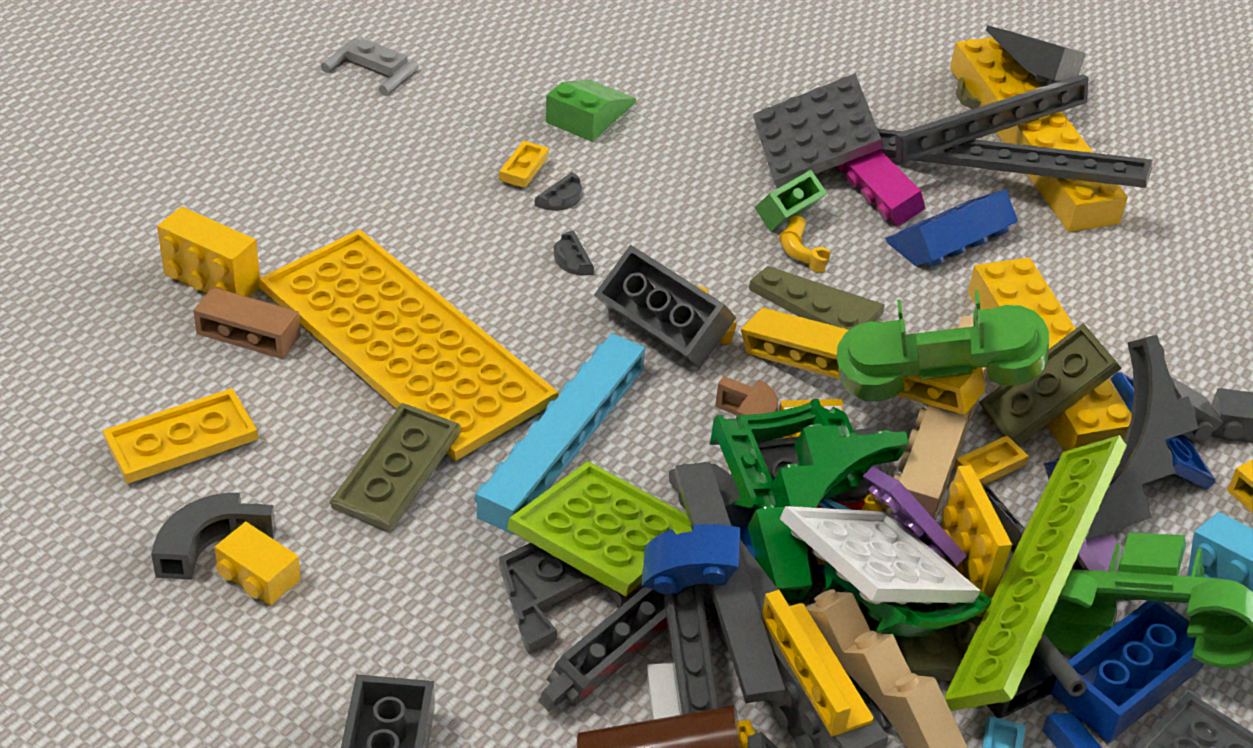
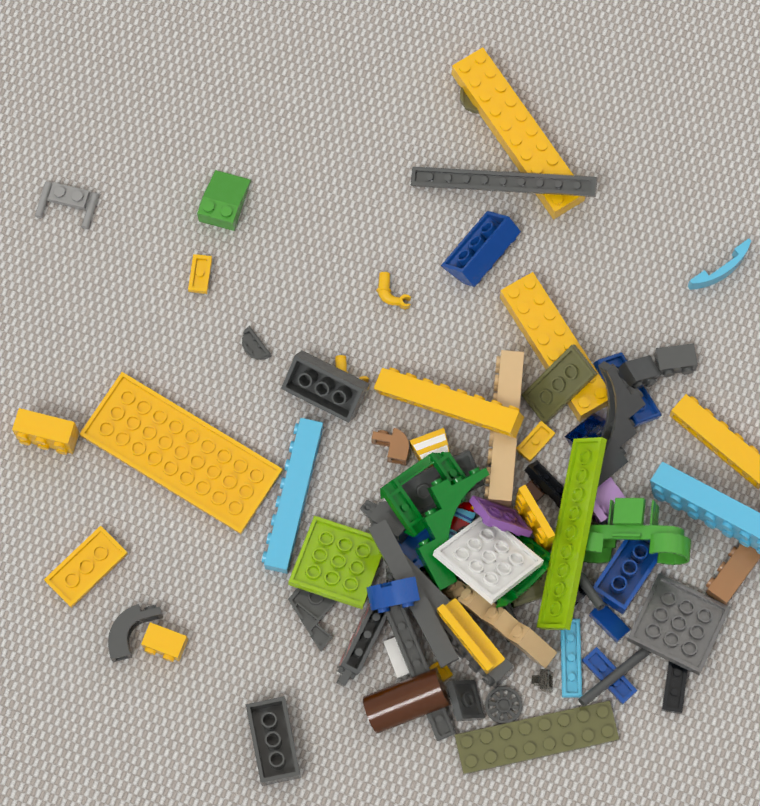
camera: 10 degrees left, 30 degrees up
(247, 322) = (87, 470): medium nougat brick -> none
(395, 467) = (211, 552): olive tile -> none
(561, 195) = (232, 291): dark grey tile -> none
(790, 200) = (376, 260): bright green brick -> none
(814, 300) = (417, 341): olive wing -> none
(817, 130) = (378, 187): flat silver plate -> none
(884, 186) = (425, 216): dark pink brick -> none
(991, 118) = (490, 153): dark grey tile -> none
(1004, 339) = (528, 395): bright green piece -> none
(1045, 59) = (507, 65): dark grey slope -> none

